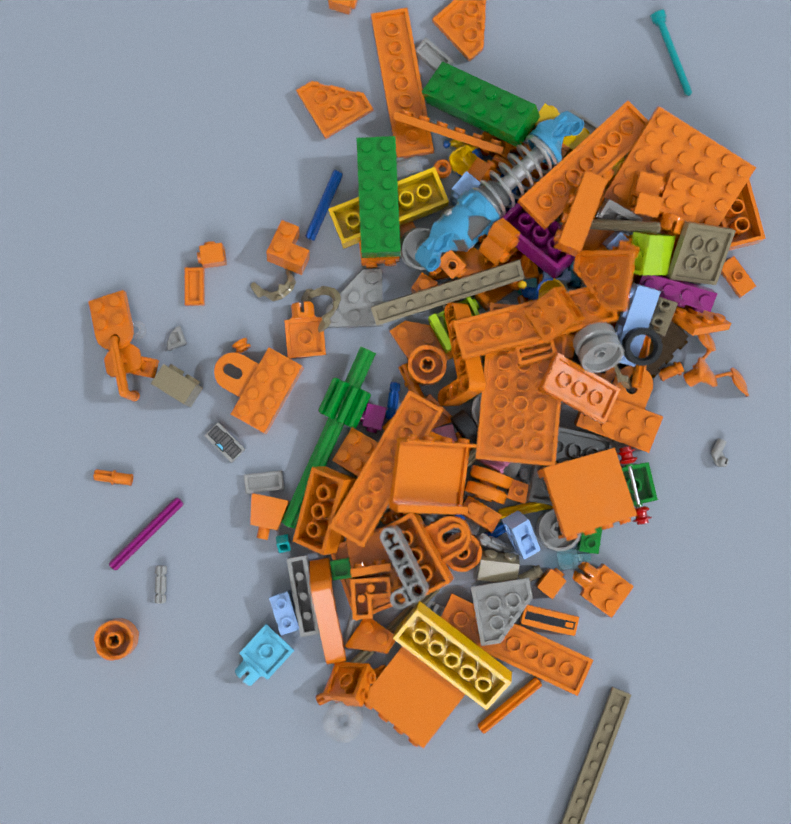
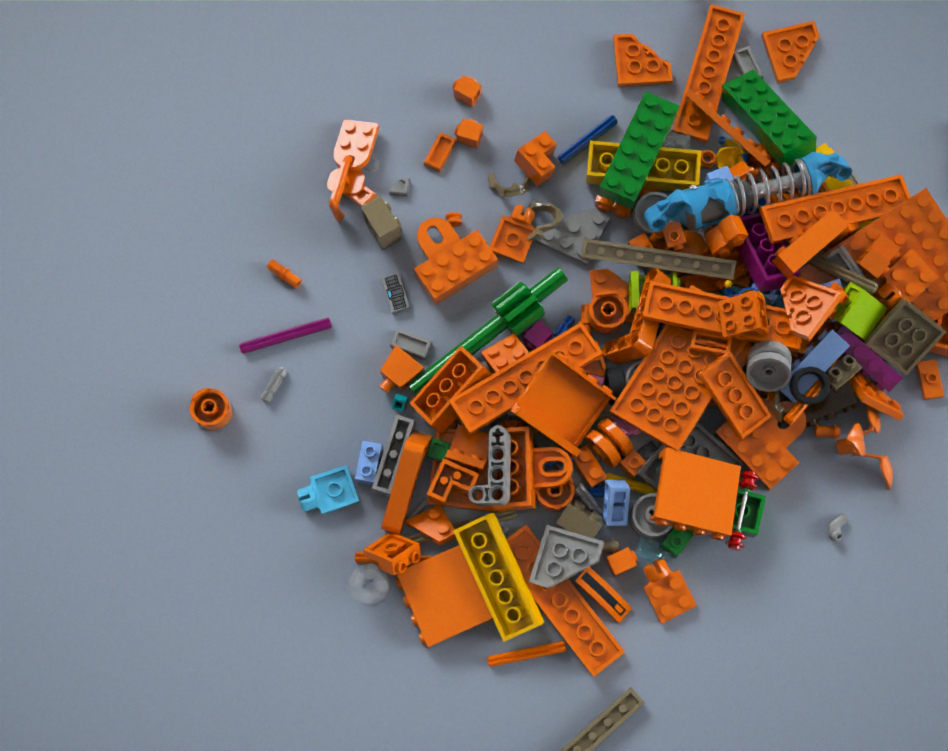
camera: 30 degrees right, 10 degrees down
(188, 213) = (467, 90): none -> orange brick

